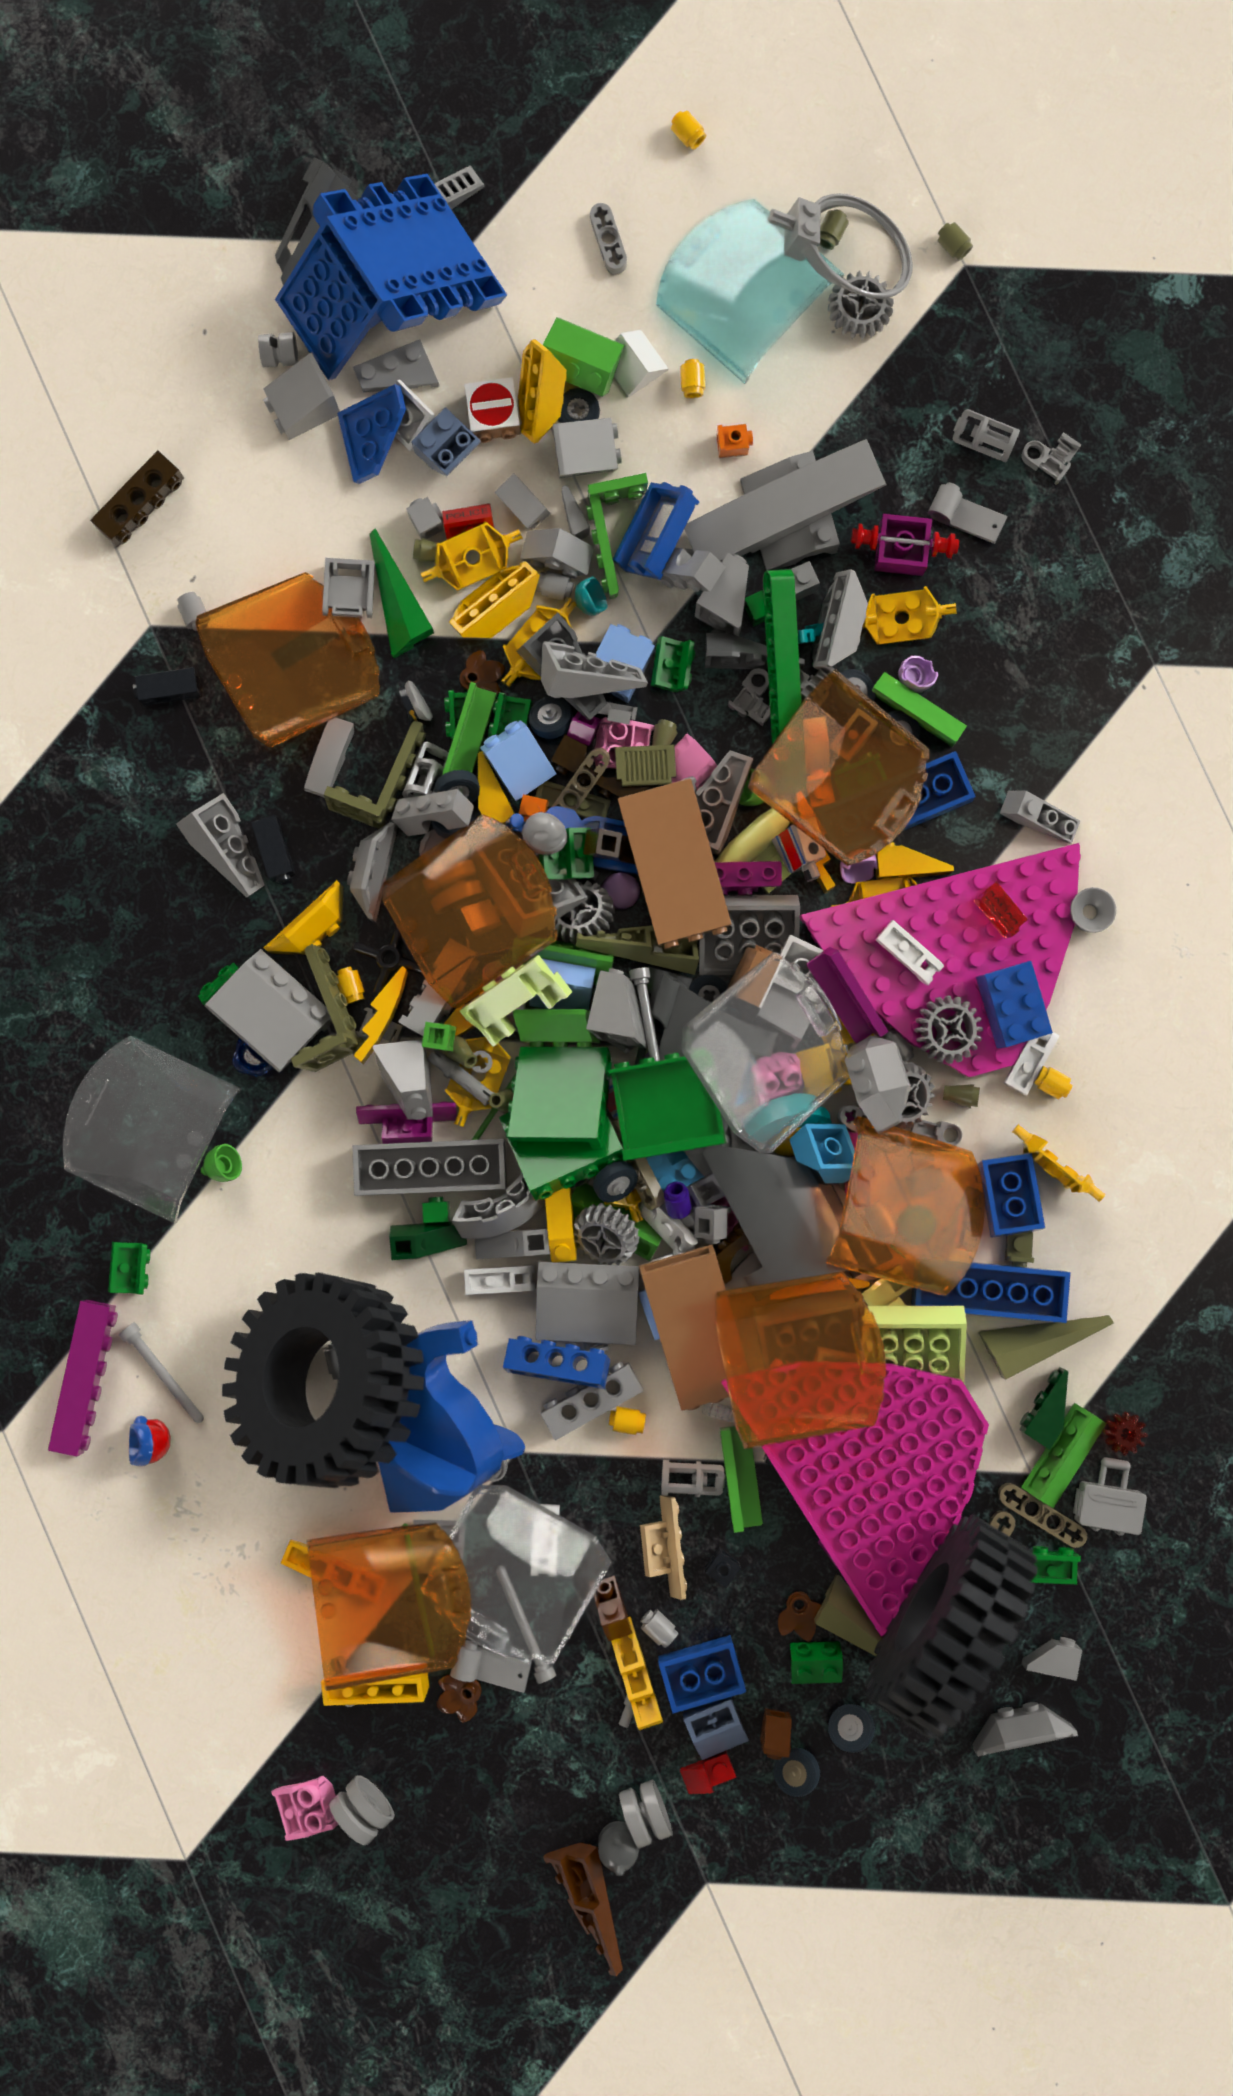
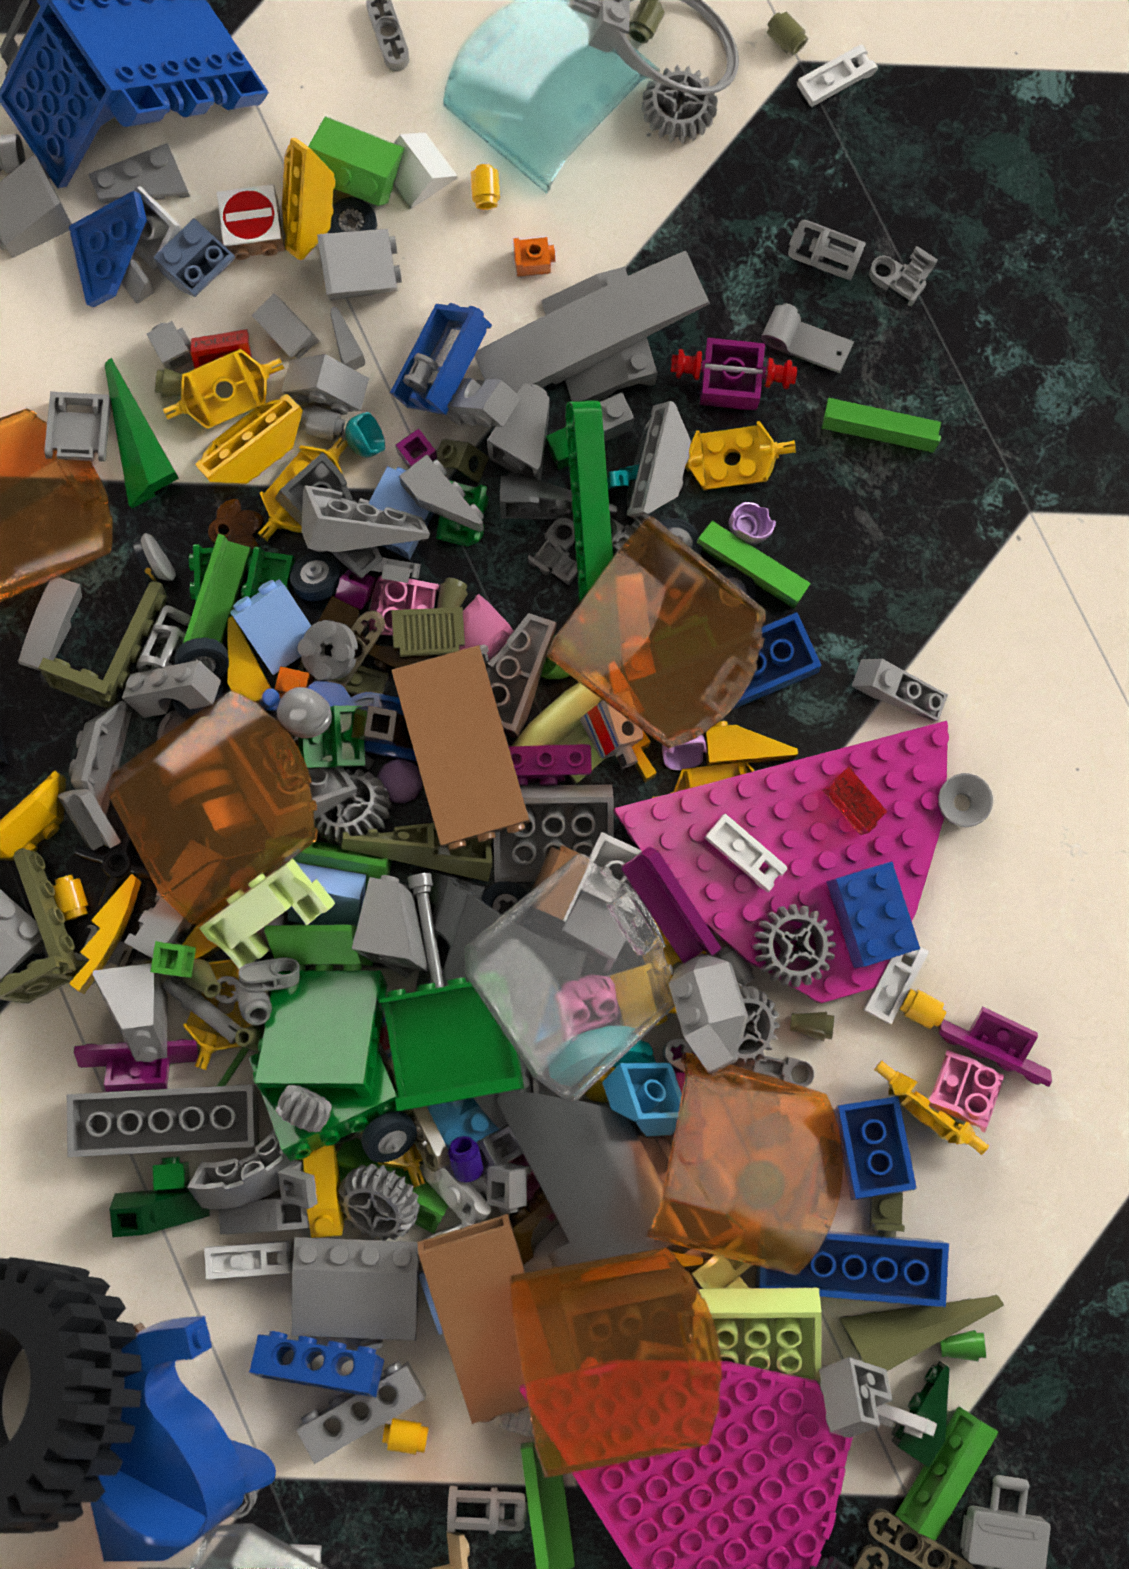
camera: 10 degrees left, 5 degrees down
(365, 920) = (88, 818): none -> light grey slope
(396, 463) = (137, 282): none -> light grey slope
(504, 1072) = (254, 1006): none -> light grey brick
(512, 1050) = (264, 975): none -> light grey piece
(541, 1220) = (297, 1185): none -> light grey bracket
(548, 1157) = (303, 1108): none -> light grey gear
(550, 778) = (343, 651): none -> light grey plate
(610, 493) = (388, 315): bright green bracket -> none
(634, 602) = (415, 442): none -> magenta plate
(638, 543) = (420, 372): none -> light grey bush
(651, 647) = (435, 493): none -> light grey slope
(668, 614) = (456, 456): none -> olive bracket
(990, 1390) = (852, 1394): none -> light grey brick
(997, 279) = (836, 75): none -> white plate
(1017, 1408) = (913, 1424): none -> white plate
(1029, 589) = (881, 425): none -> bright green panel
(1080, 1355) = (964, 1346): none -> bright green cone
(1087, 1149) = (966, 1089): none -> bright pink slope
(1115, 1431) = (1032, 1451): clear red gear -> none
(1116, 1109) = (1000, 1041): none -> magenta bracket

